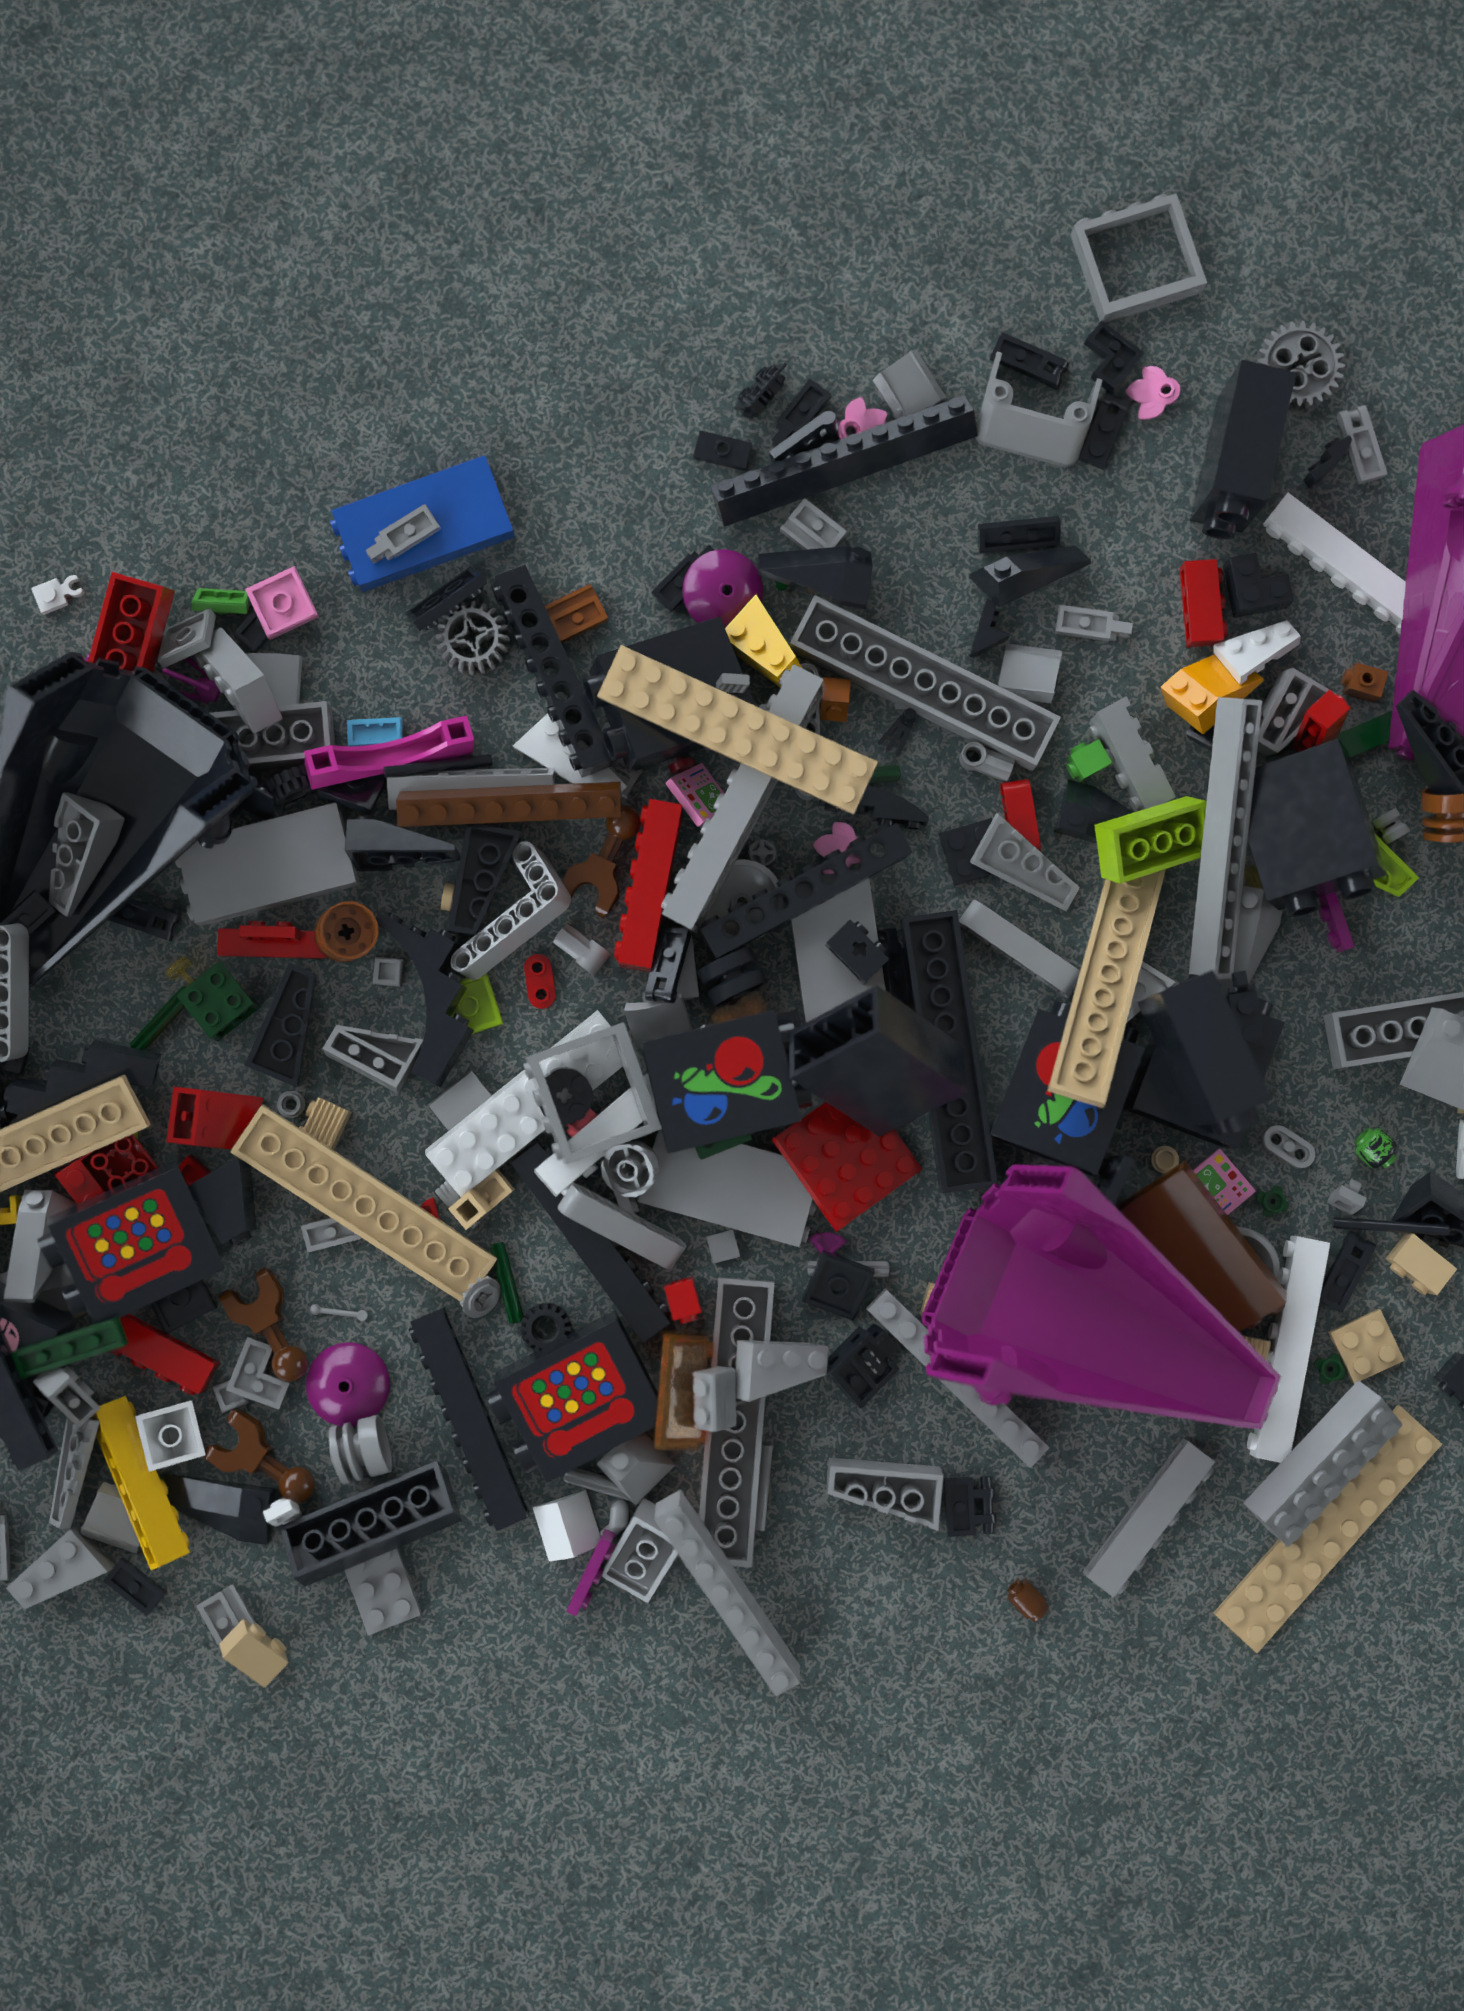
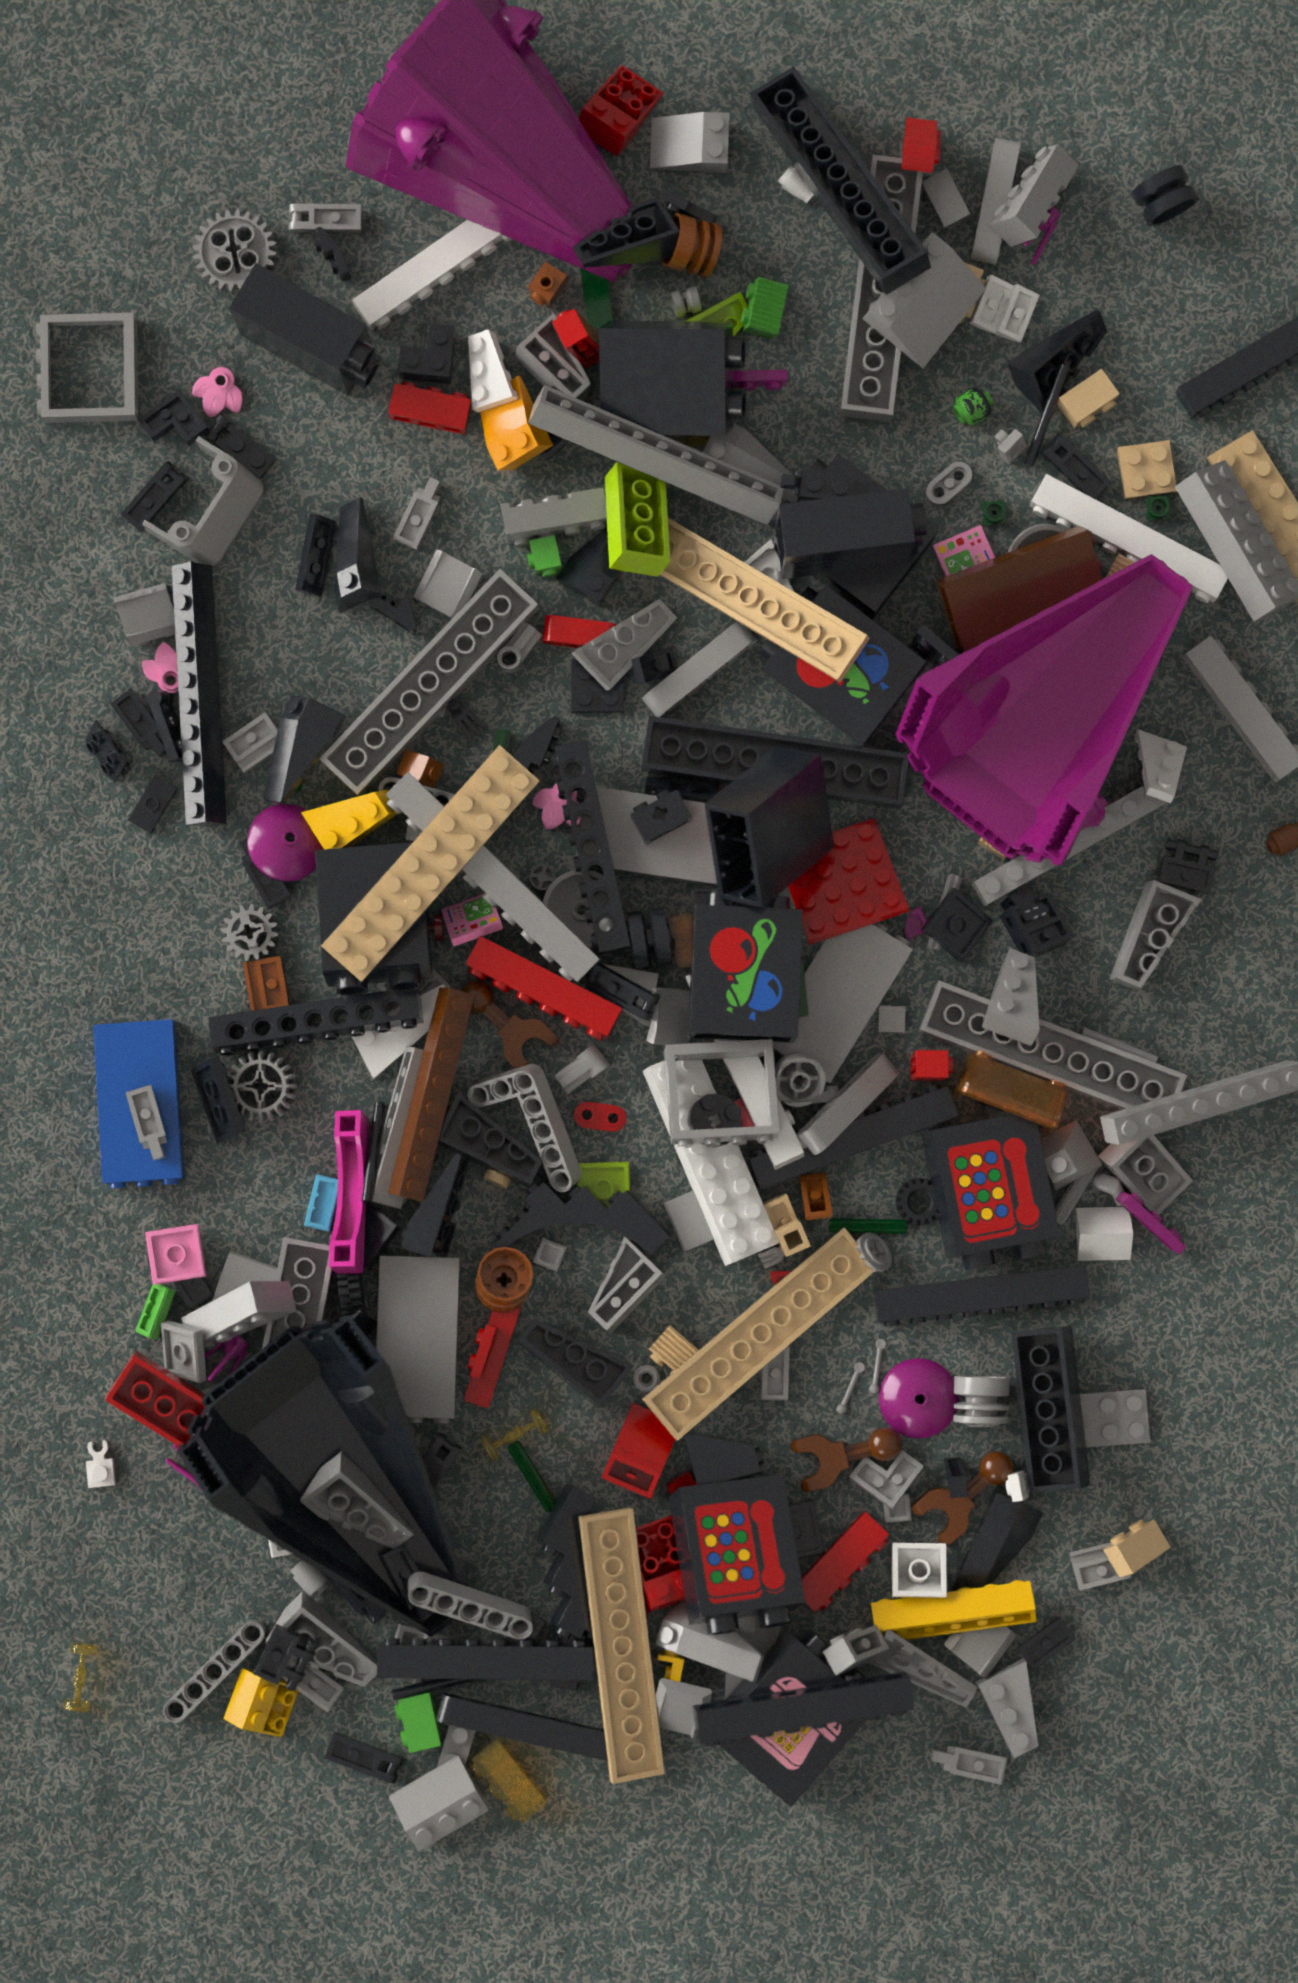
camera: 70 degrees left, 0 degrees up
(69, 1347) = (815, 1631): dark green tile -> none
(217, 1002) = (532, 1418): dark green bracket -> none
(275, 1445) = (955, 1477): none -> black piece
(390, 1330) = (880, 1344): none -> light grey hinge
(519, 1221) = (815, 1196): none -> dark orange slope
(630, 574) = (246, 921): none -> light grey gear
(714, 1398) = (1028, 1062): light grey brick -> none
(733, 683) = (383, 855): light grey tile -> none
(1010, 901) = (654, 665): none -> black slope
(1064, 1449) = (1161, 764): none -> white wing
(1164, 1159) = (928, 597): tan plate -> none
(1410, 907) = (764, 307): none -> bright green brick

